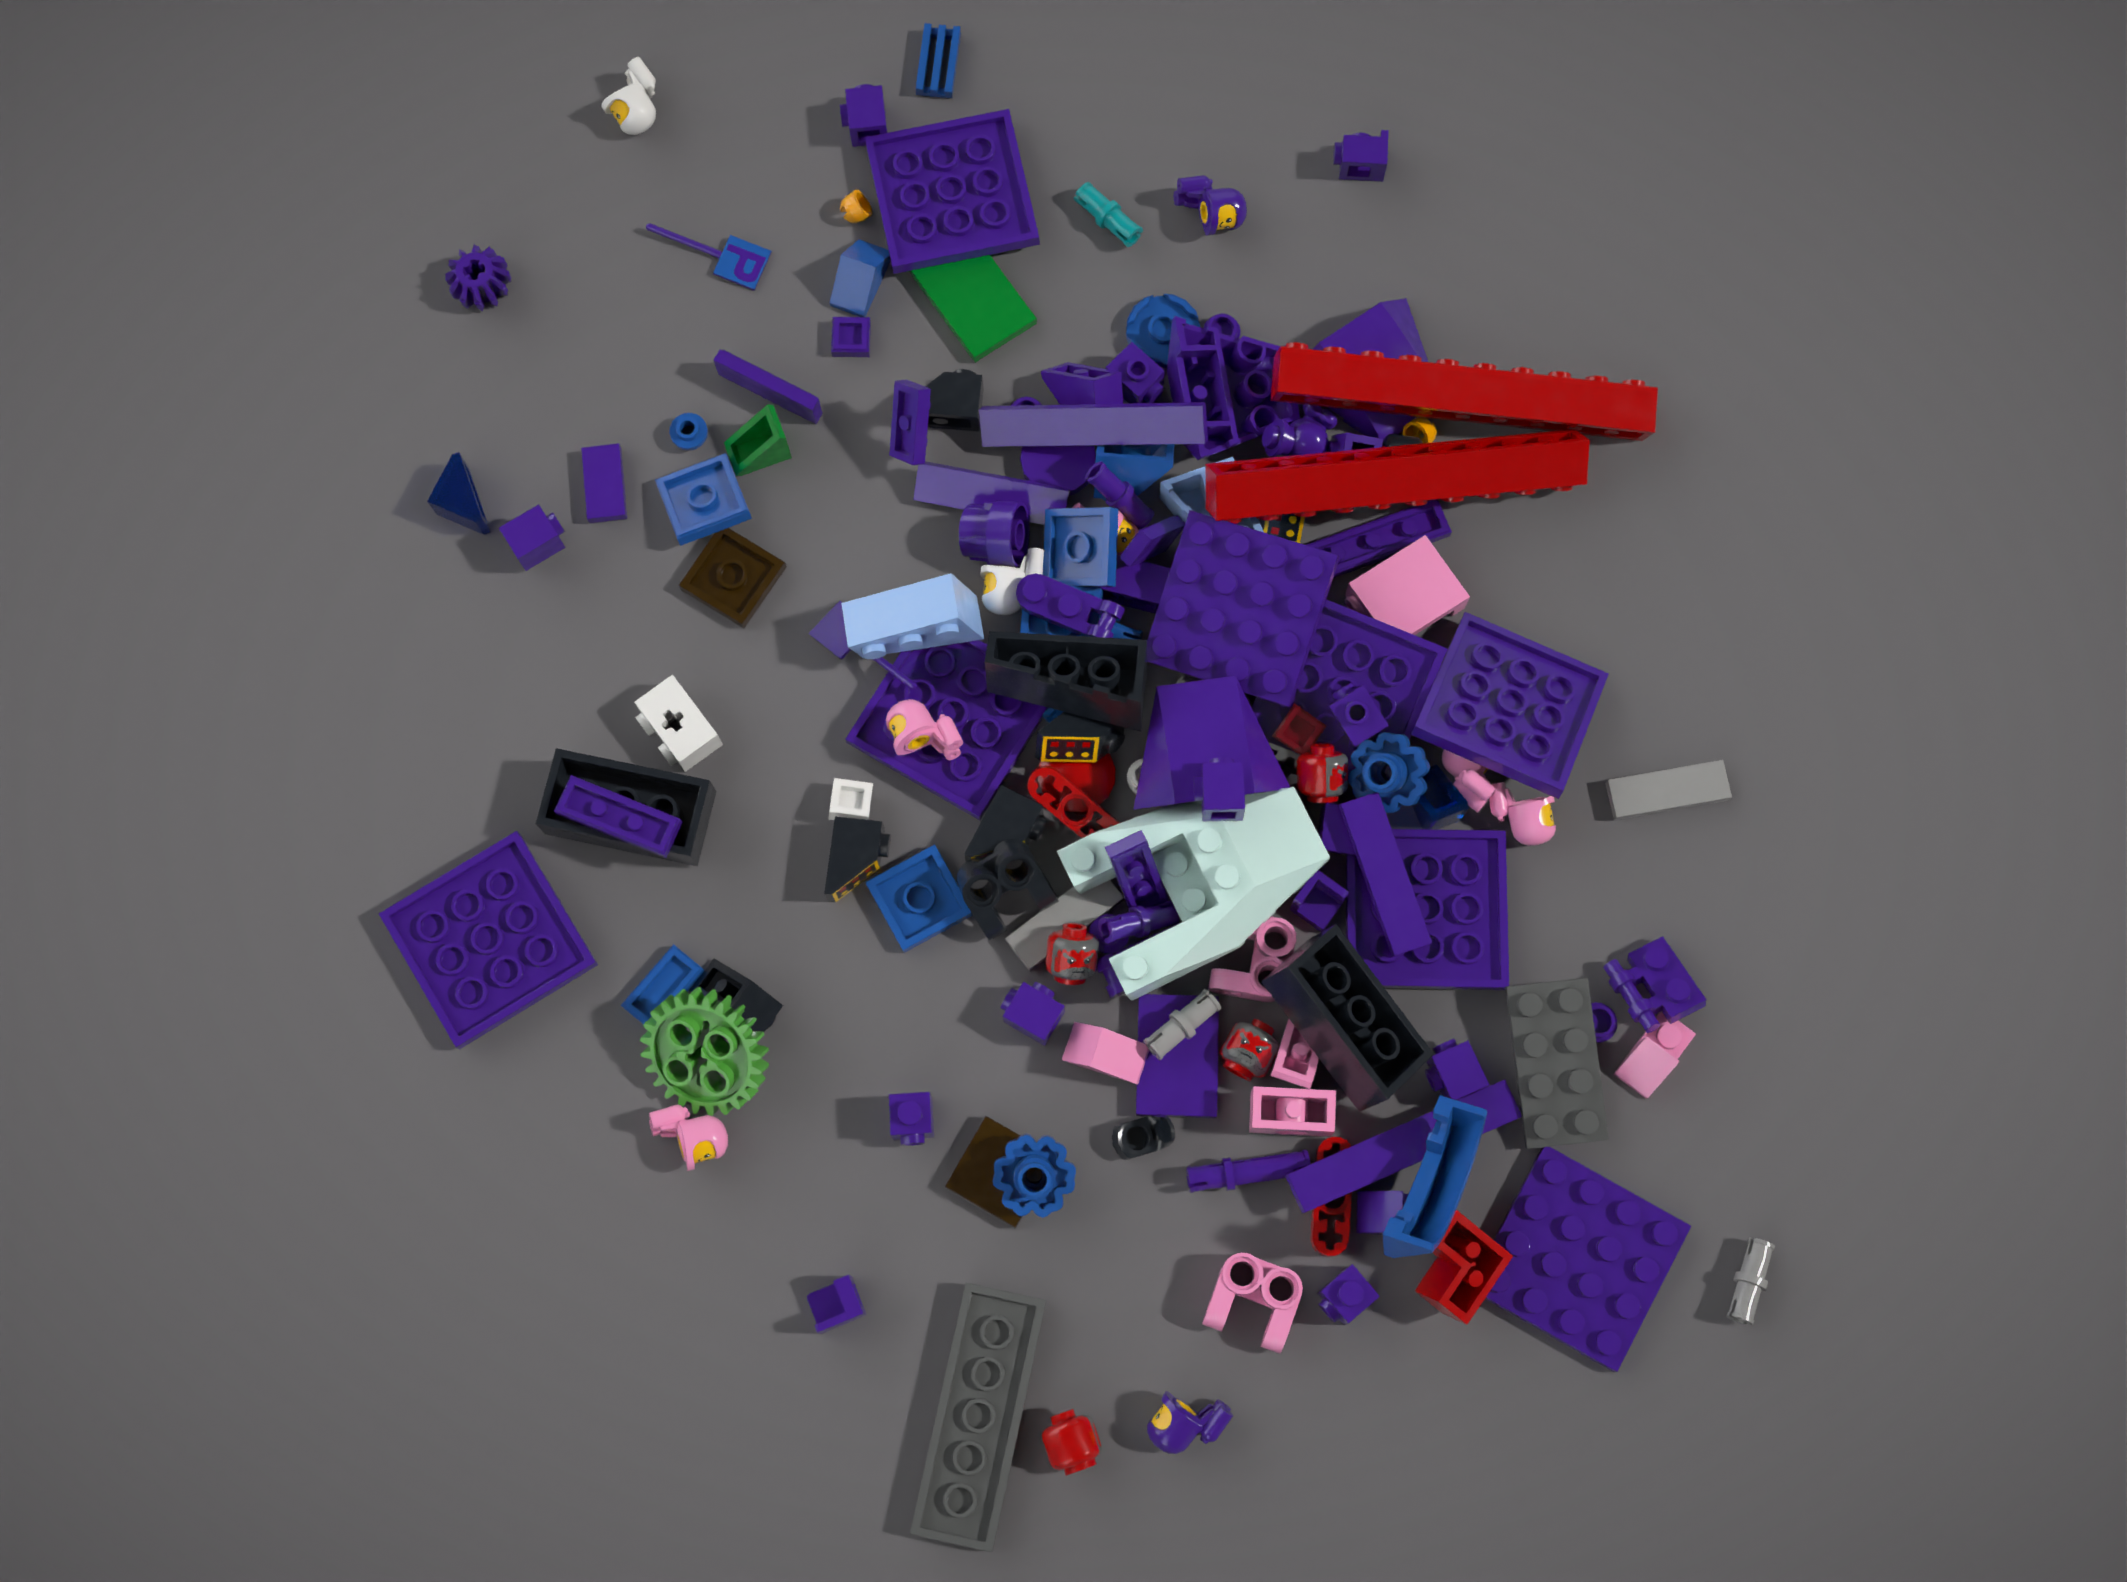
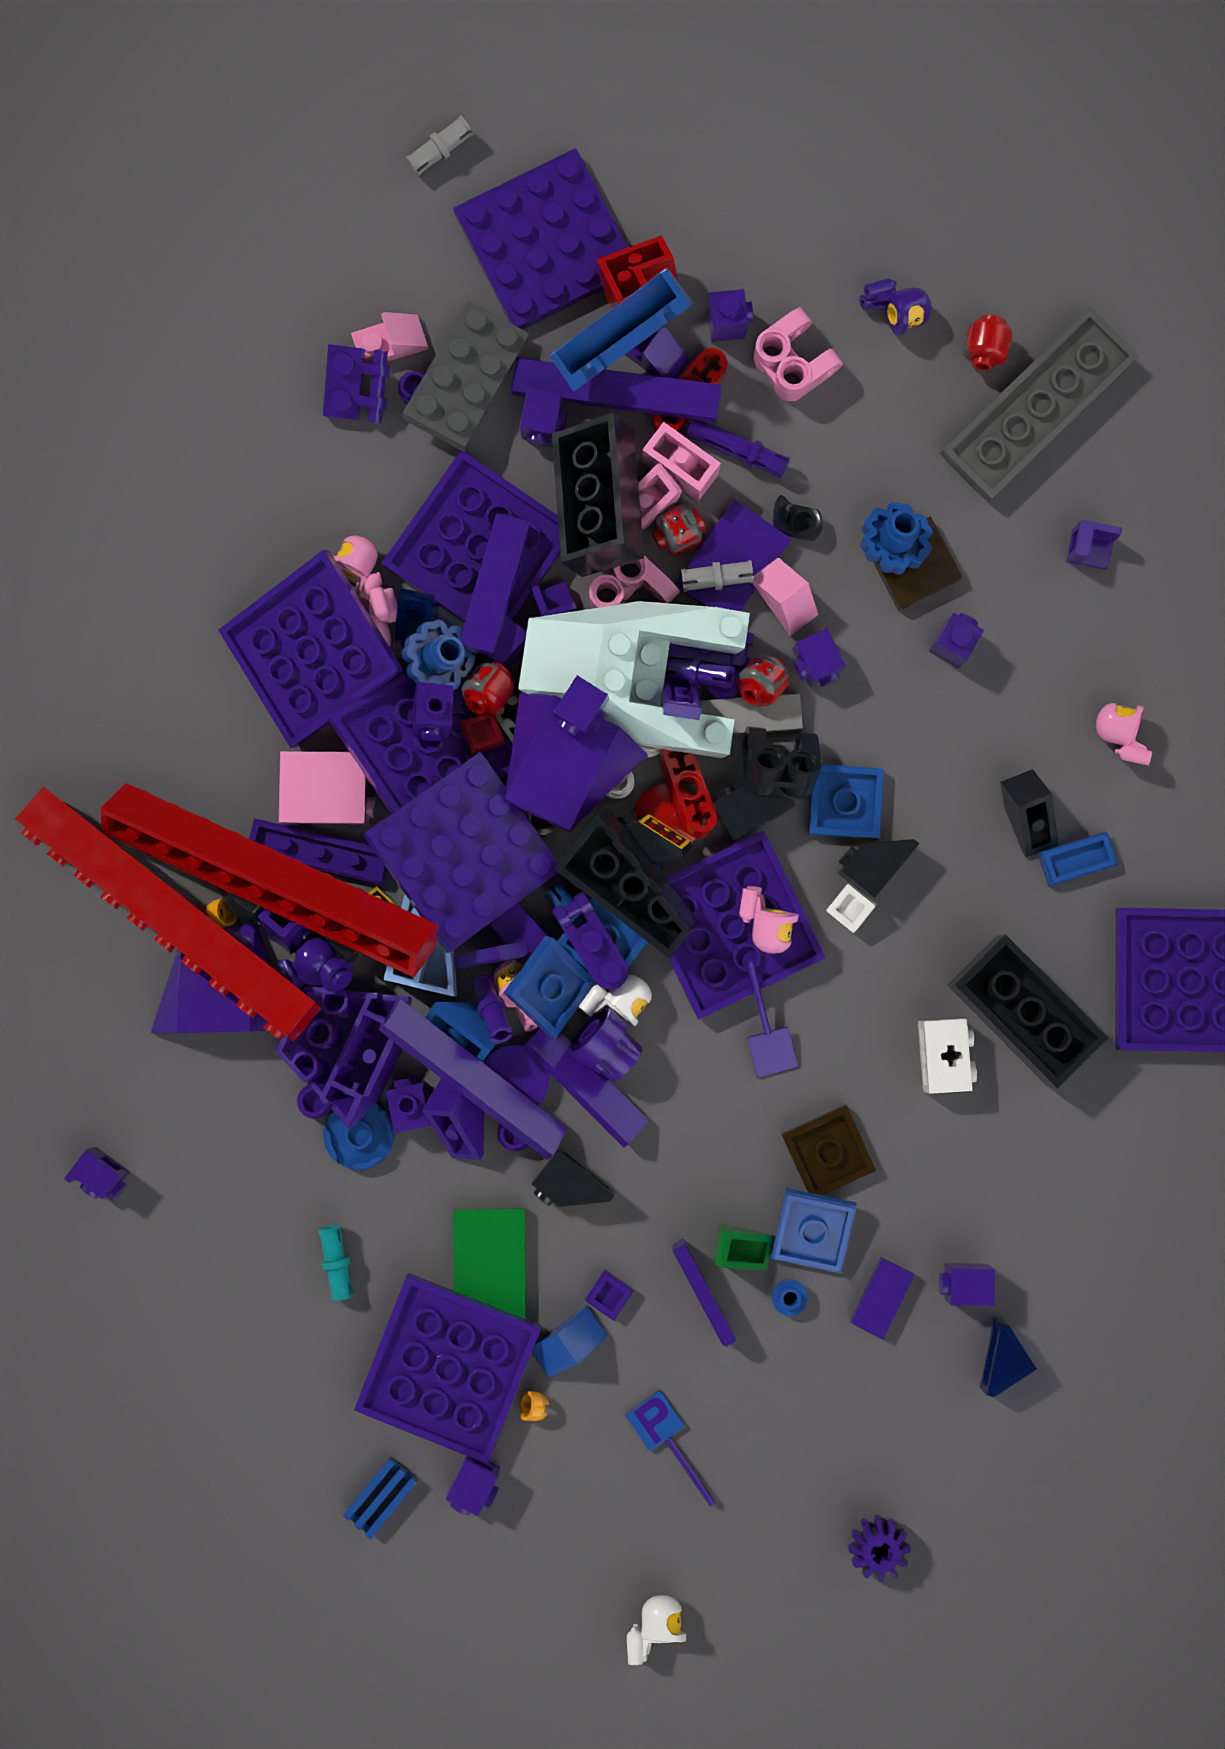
camera: 150 degrees left, 10 degrees up
(618, 816) = (1043, 1000): dark purple tile -> none
(672, 1043) = (1099, 796): bright green gear -> none
(909, 422) = (616, 1178): dark purple plate -> none
(913, 618) = (719, 1012): light blue wedge -> none
(1217, 207) = (245, 1207): dark purple piece -> none
(1668, 790) = (238, 518): light grey tile -> none

